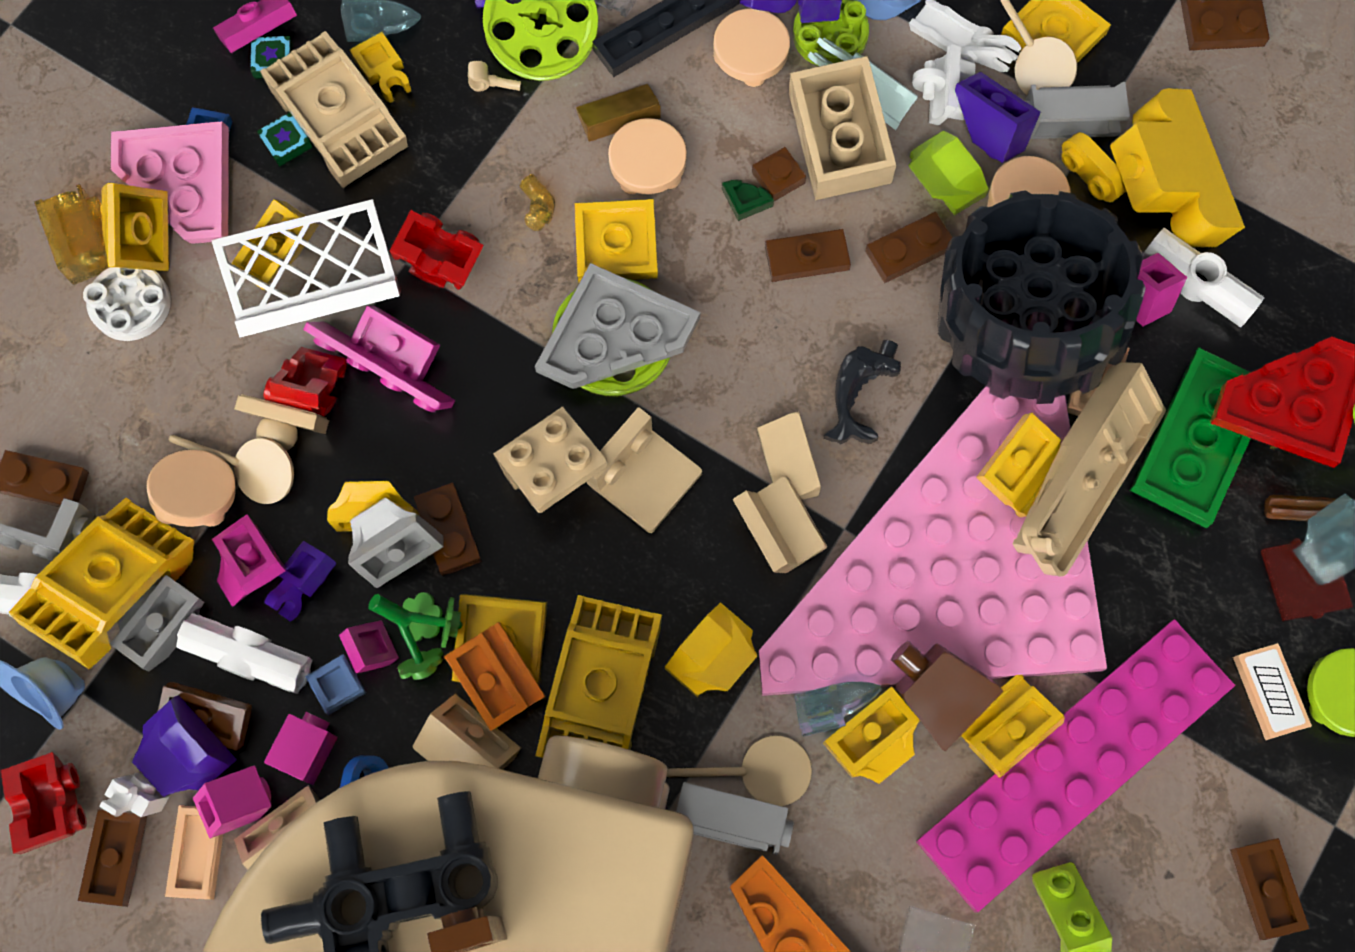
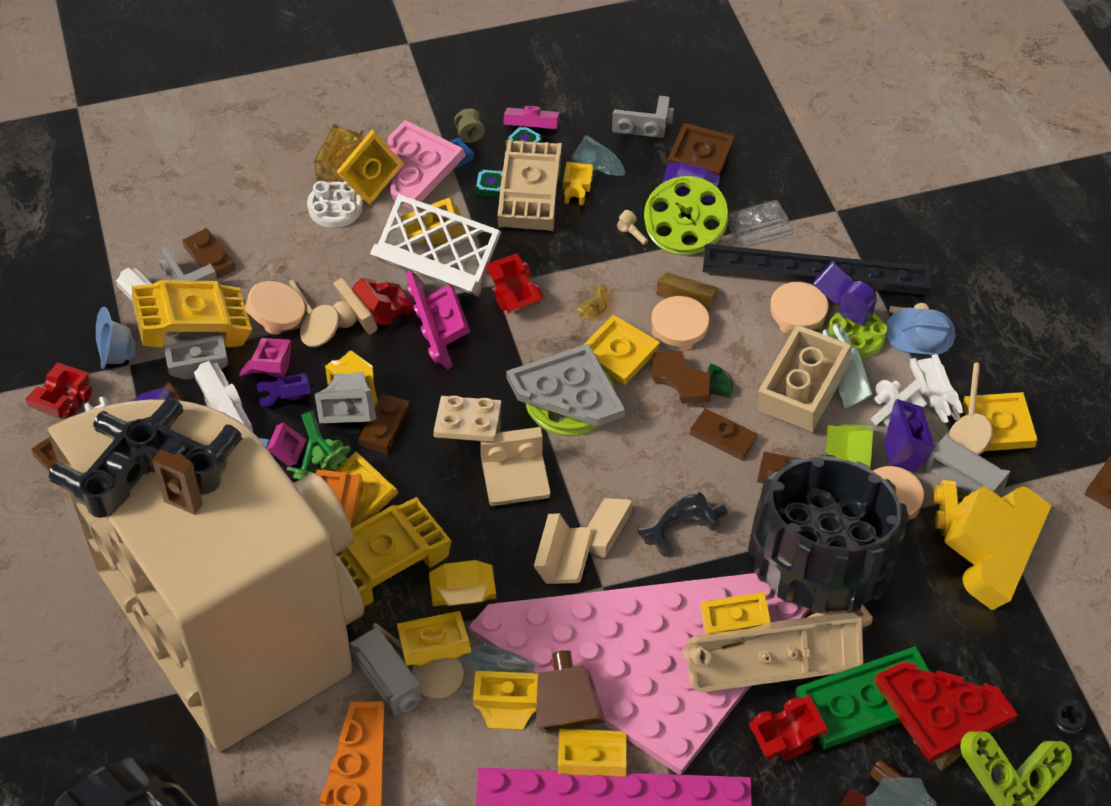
camera: 40 degrees right, 20 degrees down
(189, 81) = (469, 125): none -> olive wheel
(727, 223) = (672, 370): none -> reddish brown tile
(747, 741) = (433, 638): none -> yellow plate
(779, 173) = (748, 382): reddish brown plate -> none
(1162, 286) = (913, 591): dark pink brick -> none
(1167, 537) = (790, 730): none -> red cylinder
(1221, 290) = (962, 627): white piece -> none

